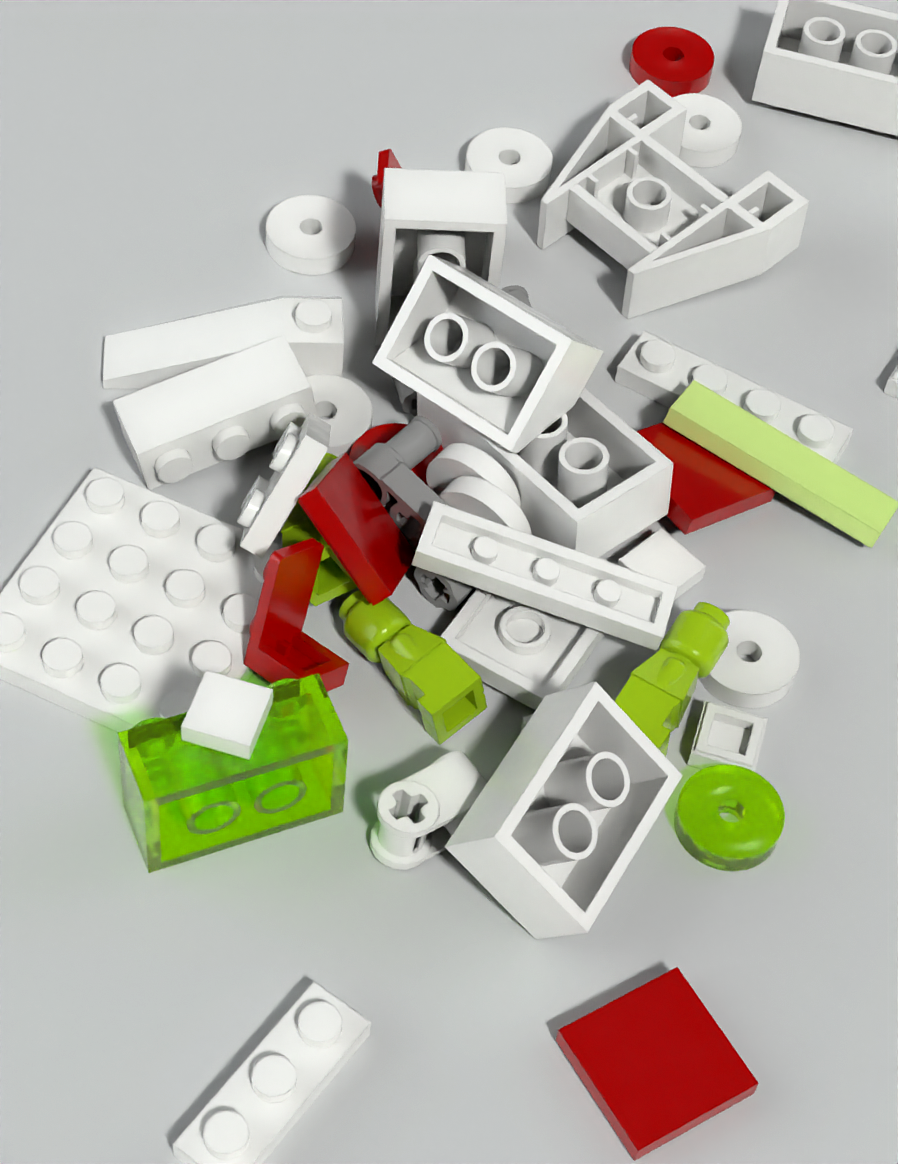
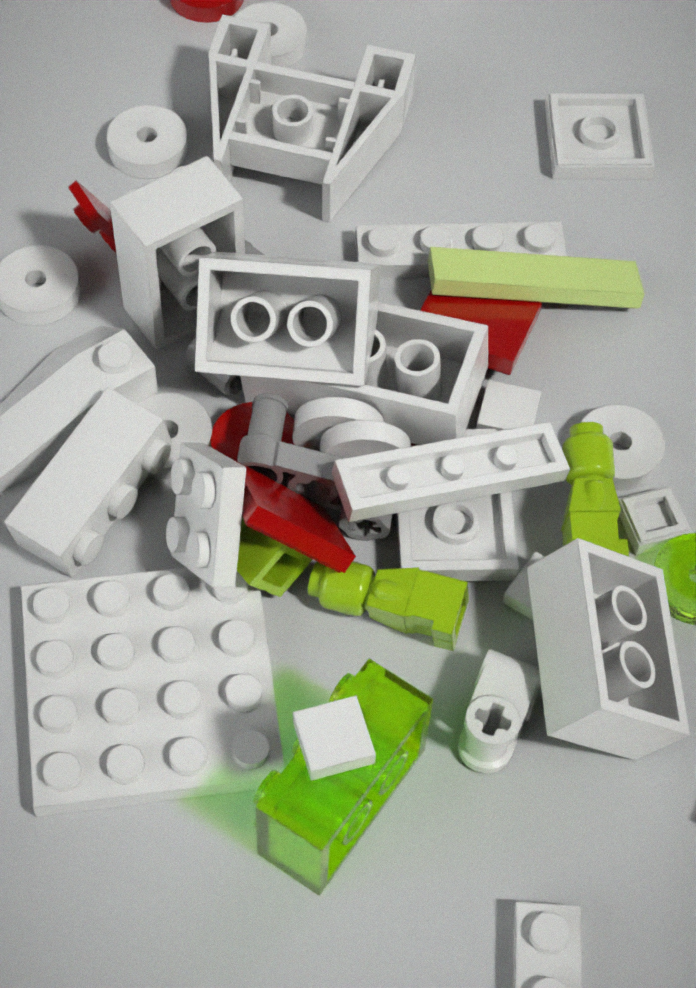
camera: 30 degrees left, 5 degrees up
(276, 641) = (294, 651): red bracket -> none

